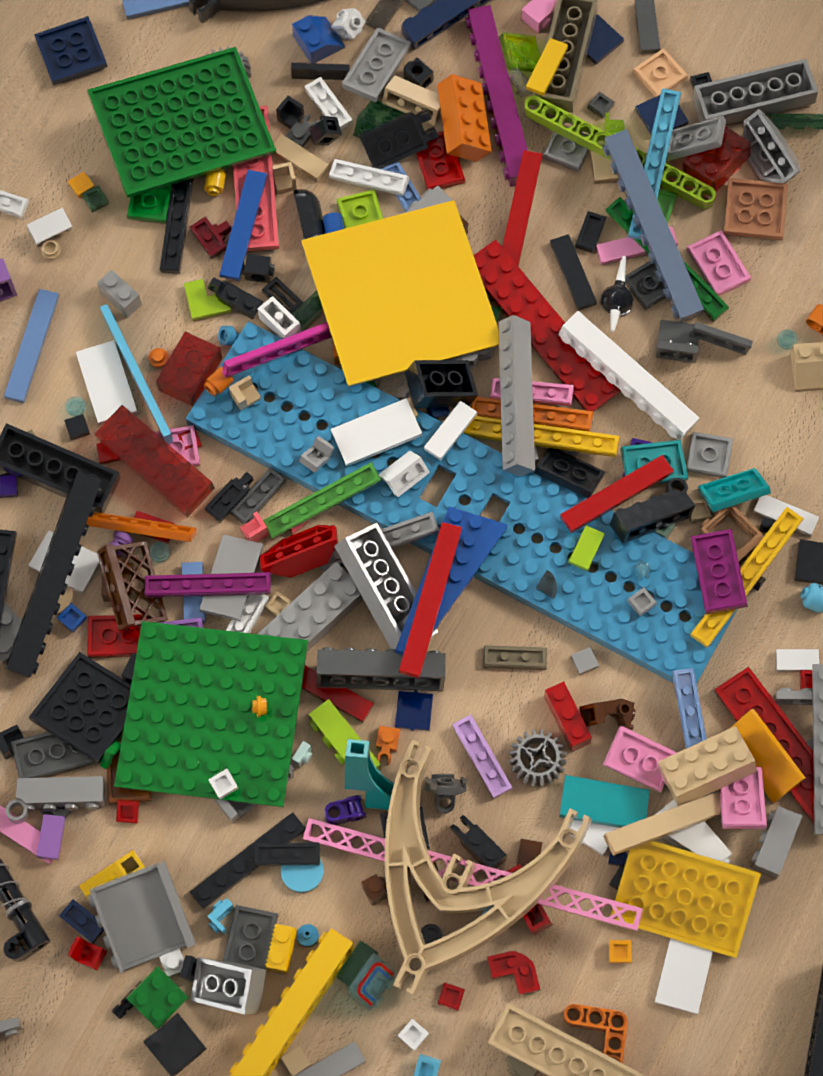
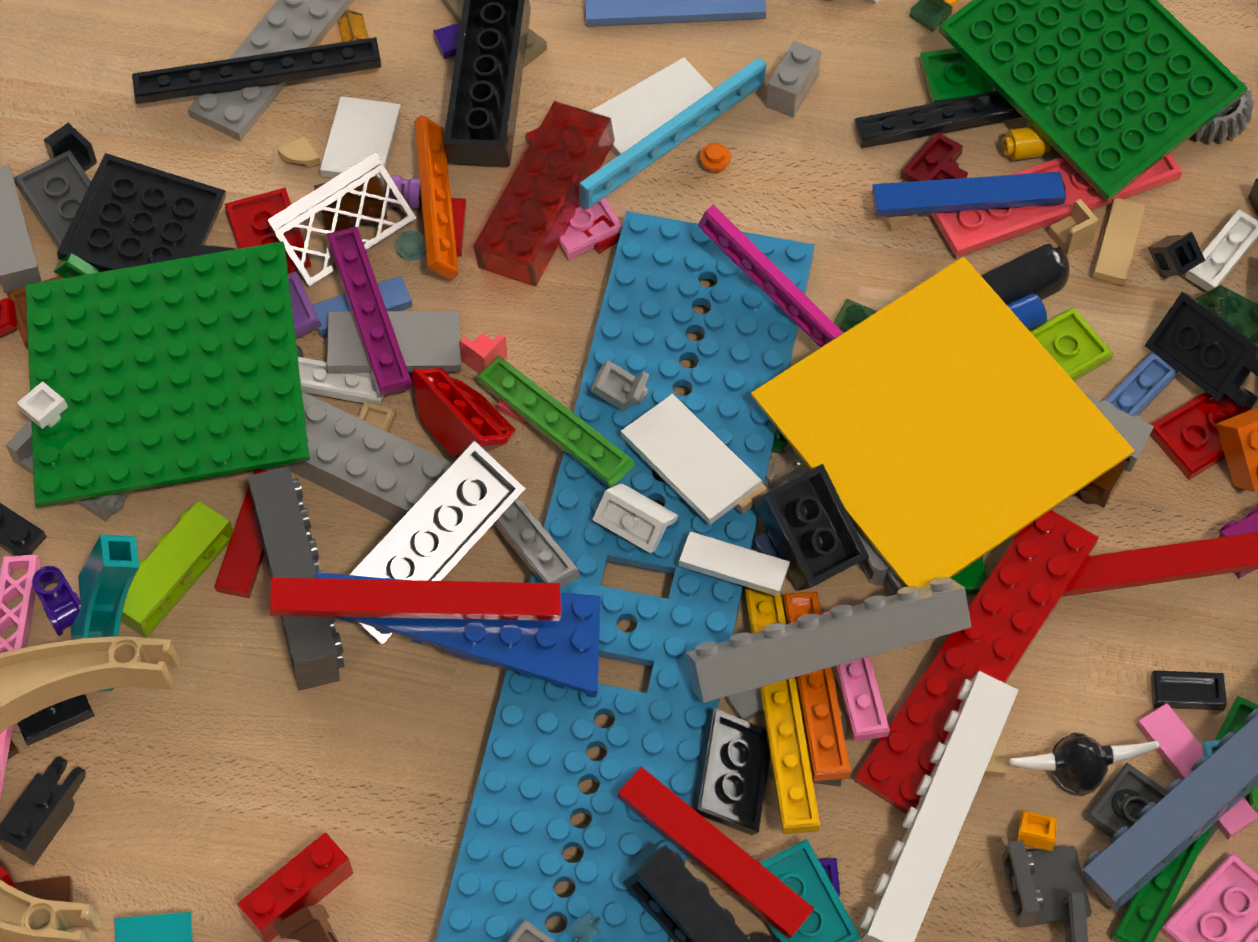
camera: 70 degrees right, 10 degrees down
(52, 575) = (324, 115): black brick -> none
(72, 617) = (276, 168): blue plate -> none
(75, 406) = (601, 82): clear light blue plate -> none
(77, 427) = (571, 92): black tile -> none
(189, 368) = (697, 183): clear red brick -> none
(200, 304) = (823, 189): lime tile -> none
(217, 382) = (685, 226): orange brick -> none
(227, 335) = (784, 228): dark azure tile -> none
(229, 497) = (526, 306): black hinge -> none
(235, 297) = (848, 222): black hinge -> none
(244, 393) = (688, 264): tan panel -> none
(258, 268) = (909, 236): black brick -> none
(258, 496) = (543, 345): dark grey tile -> none
(259, 706) = (177, 417): light orange plate -> none
(278, 319) = (834, 280): white brick -> none
(290, 112) = (1184, 203): black panel -> none
(298, 301) = (890, 264): black tile -> none
(301, 133) = (1157, 226): dark grey plate -> none
(302, 755) = (137, 516): light aqua plate -> none
(369, 177) = (1129, 339): white tile -> none
(386, 741) = (192, 632): orange plate -> none
(414, 710) = (254, 657): clear blue piece -> none
(445, 786) = (125, 730): dark grey tile -> none
(482, 756) = (195, 776): lavender plate -> none
(515, 657) = (384, 782): dark tan tile -> none
(531, 753) = (188, 853): light grey gear -> none
(548, 585) = (513, 786): clear smoke tile -> none
(573, 272) = (1101, 683): black tile -> none
(584, 661) = (407, 893): light grey tile -> none
(586, 548) = (597, 829): lime tile -> none
(647, 334) = (1037, 830): none -> light orange tile

